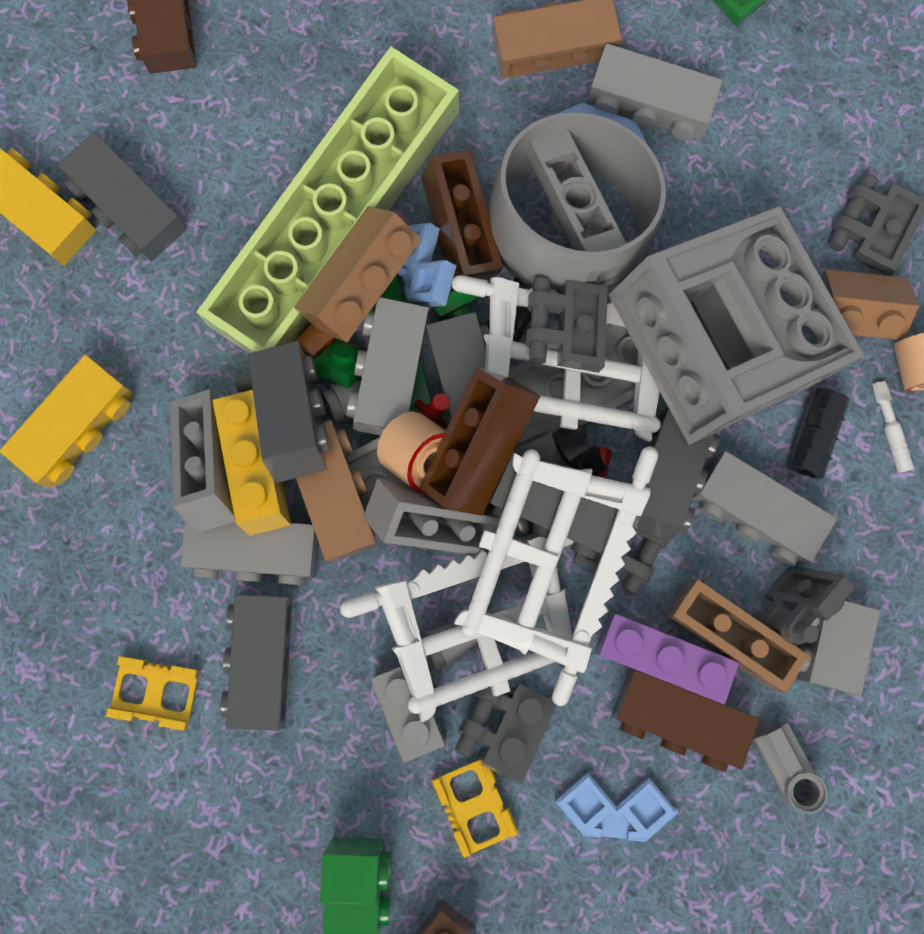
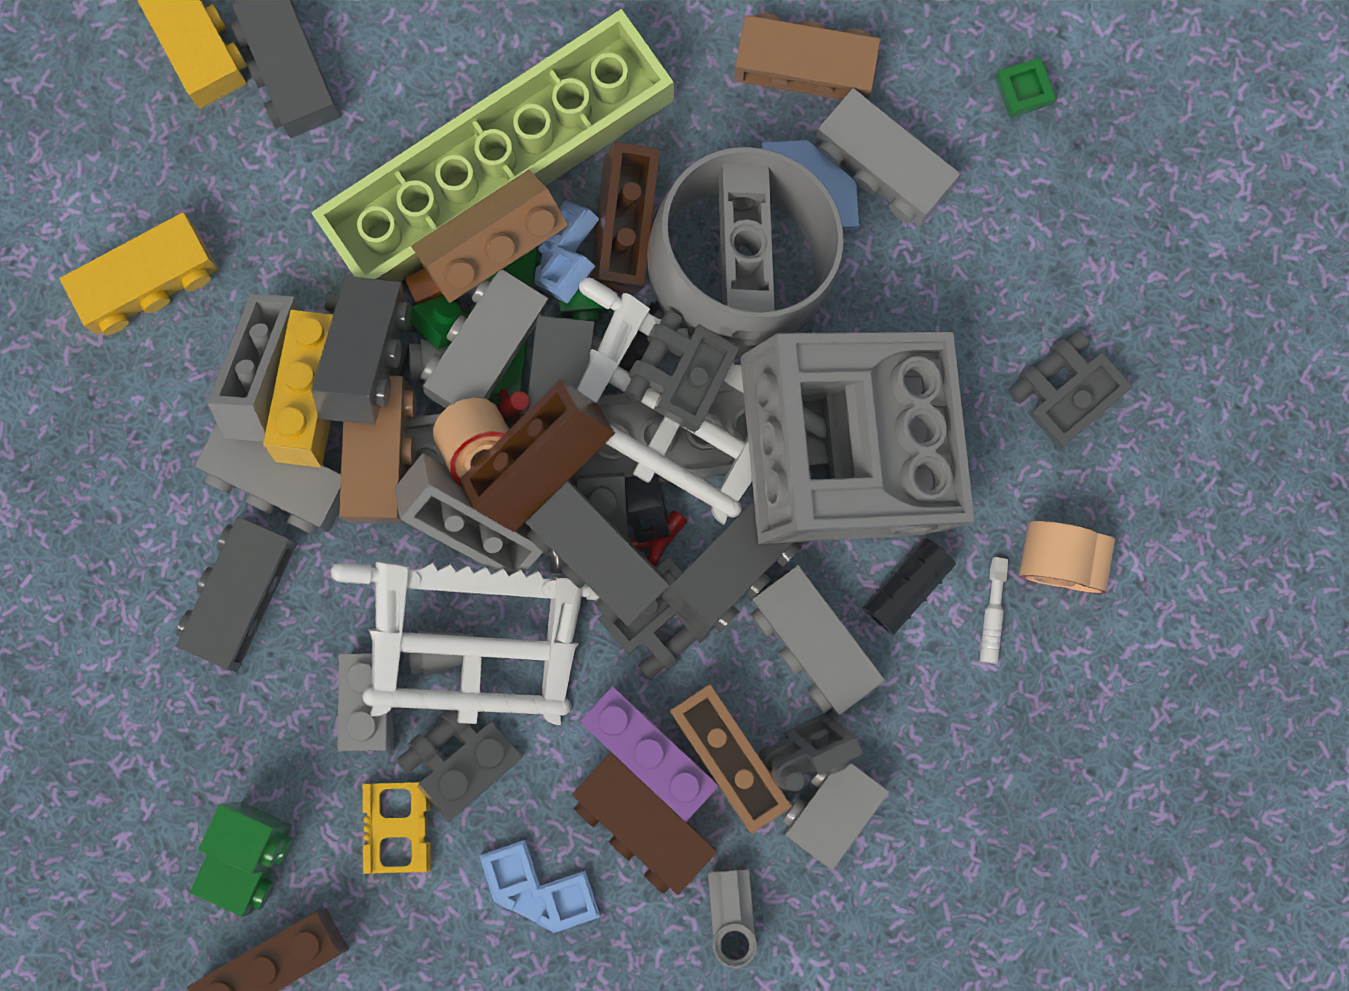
camera: 25 degrees right, 0 degrees up
(151, 707) = (111, 598): yellow piece -> none
(576, 483) = (617, 537): white piece -> none
(873, 303) = (1015, 469): medium nougat brick -> none

